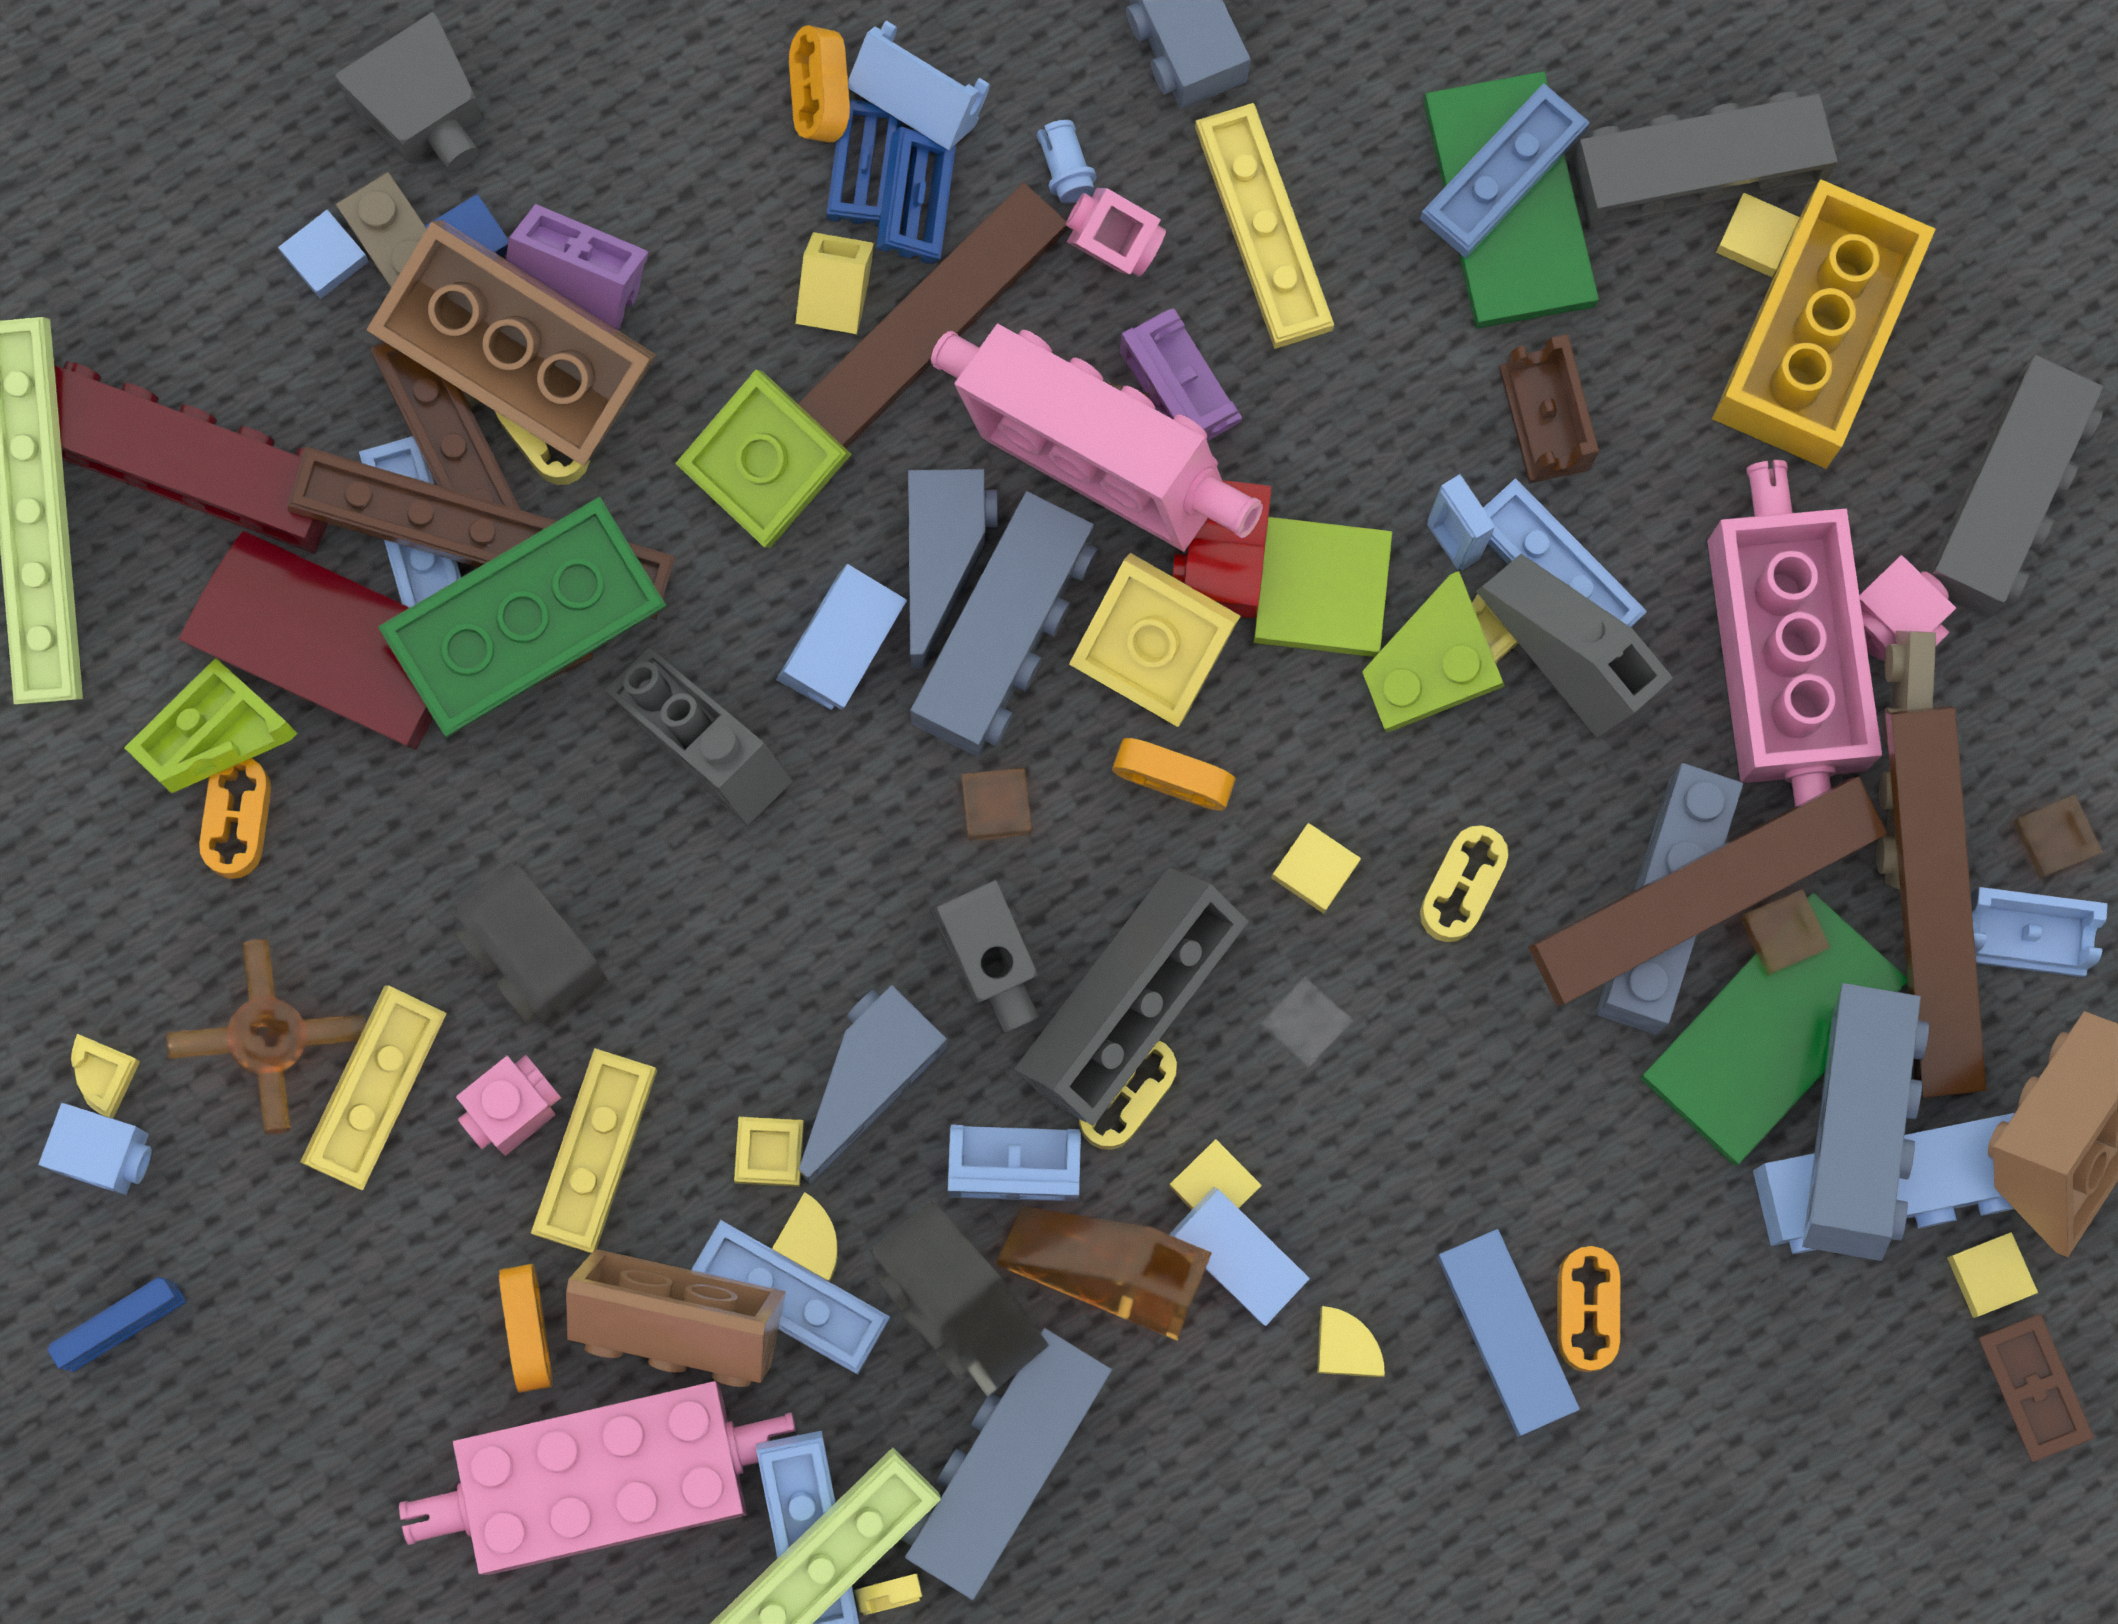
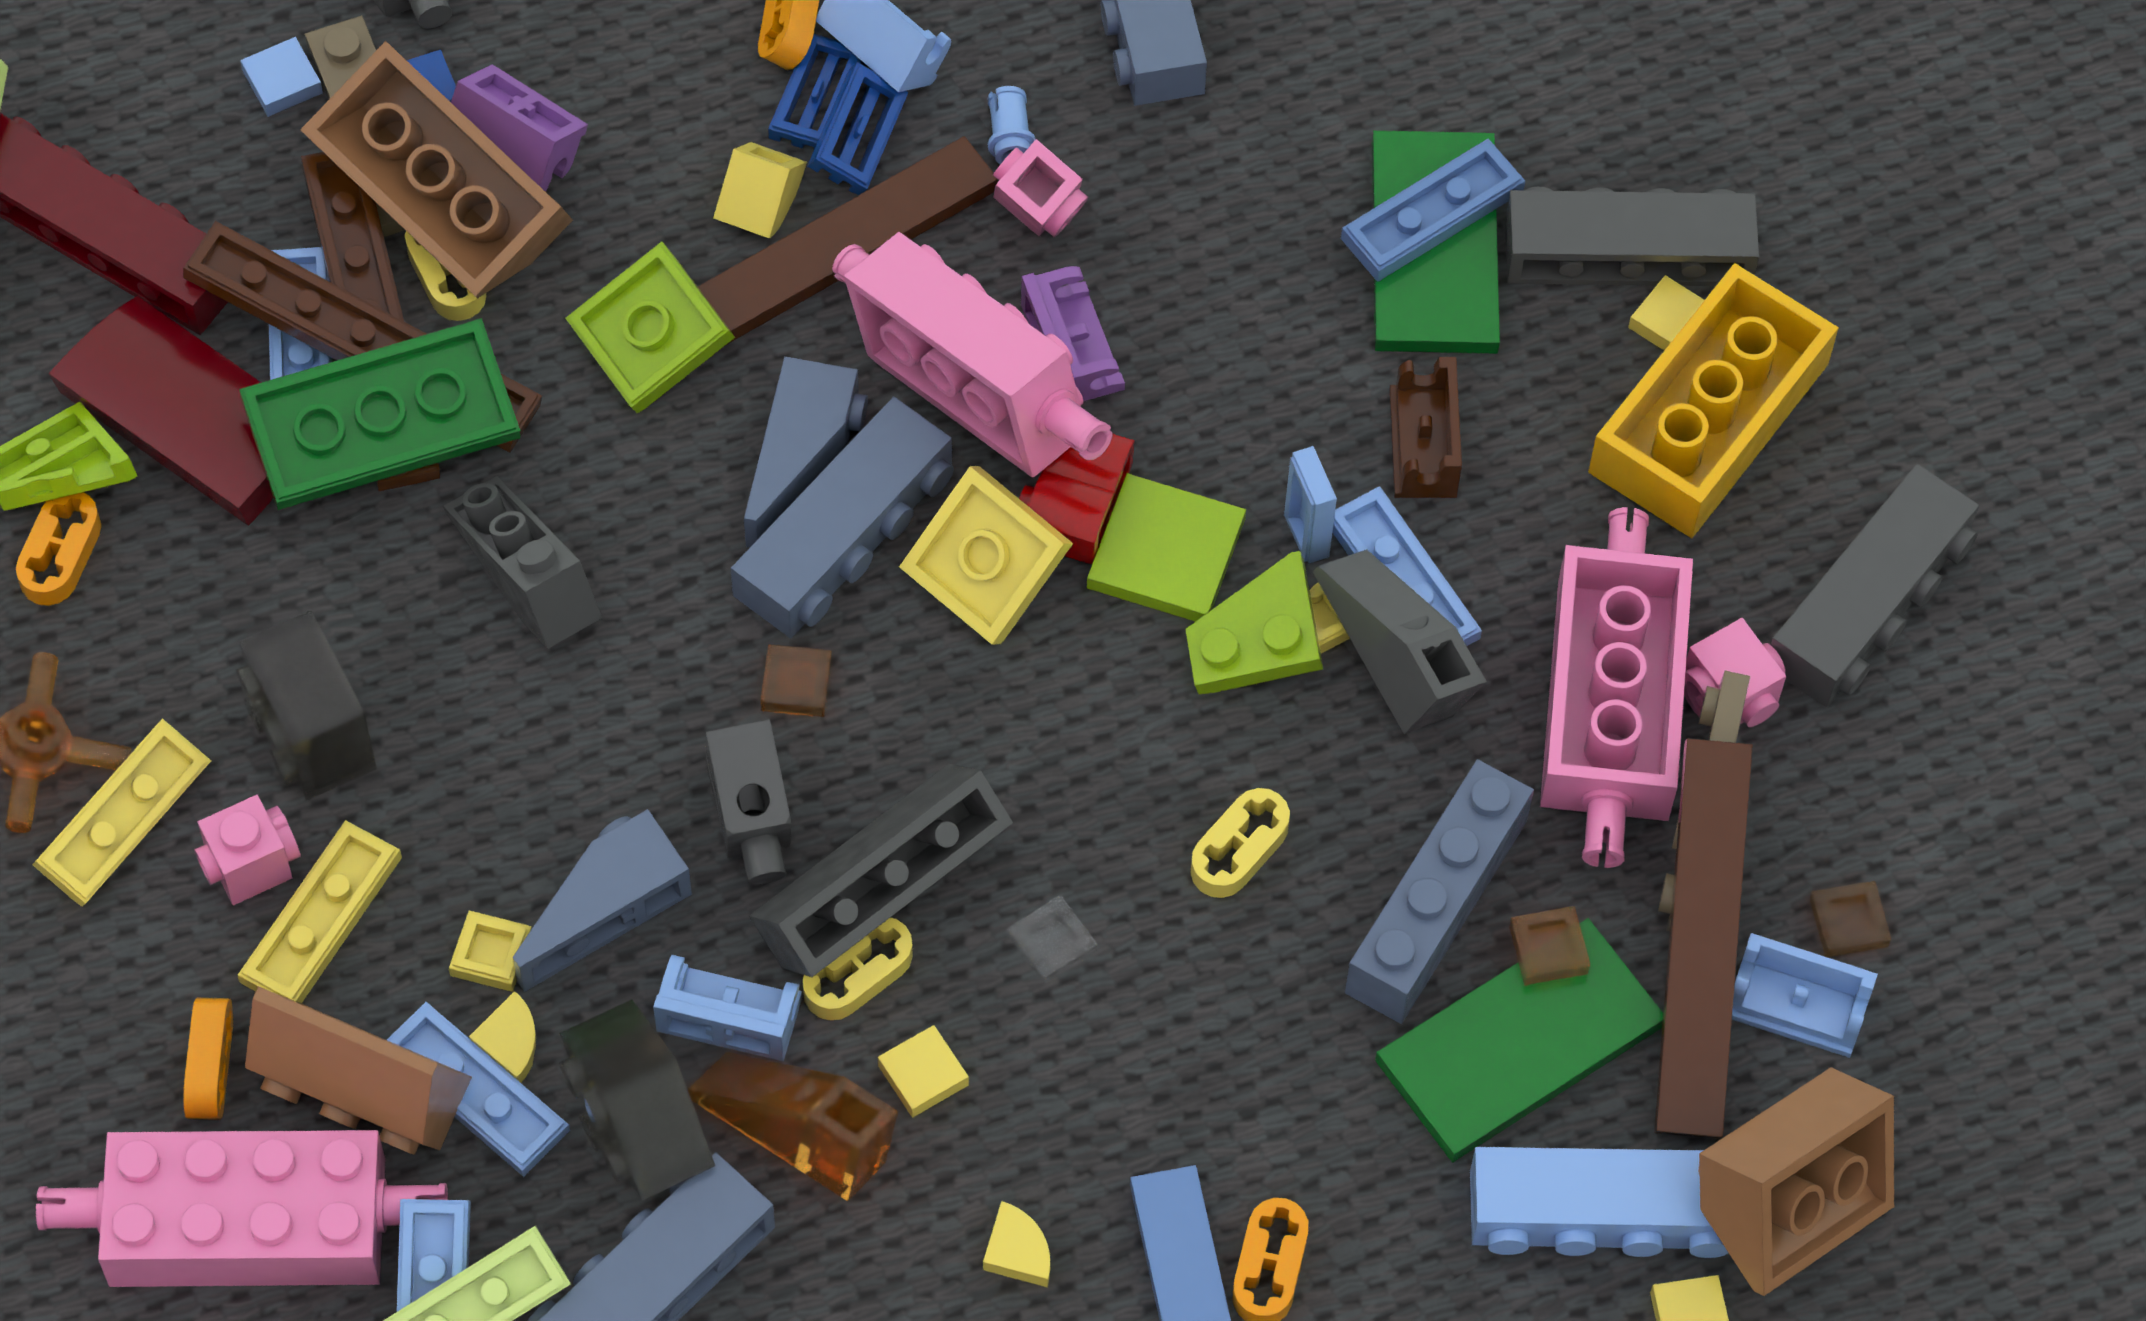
camera: 15 degrees right, 15 degrees down
(841, 639) = (680, 498): light blue hinge -> none
(1173, 774) = (976, 683): light orange beam -> none
(1241, 1256) = (933, 1138): light blue tile -> none
(1264, 225) = (1189, 220): light yellow tile -> none
(1316, 868) = (1096, 800): light yellow tile -> none
(1707, 890) = (1471, 872): reddish brown tile -> none
(1864, 1122) = (1579, 1121): sand blue brick -> none

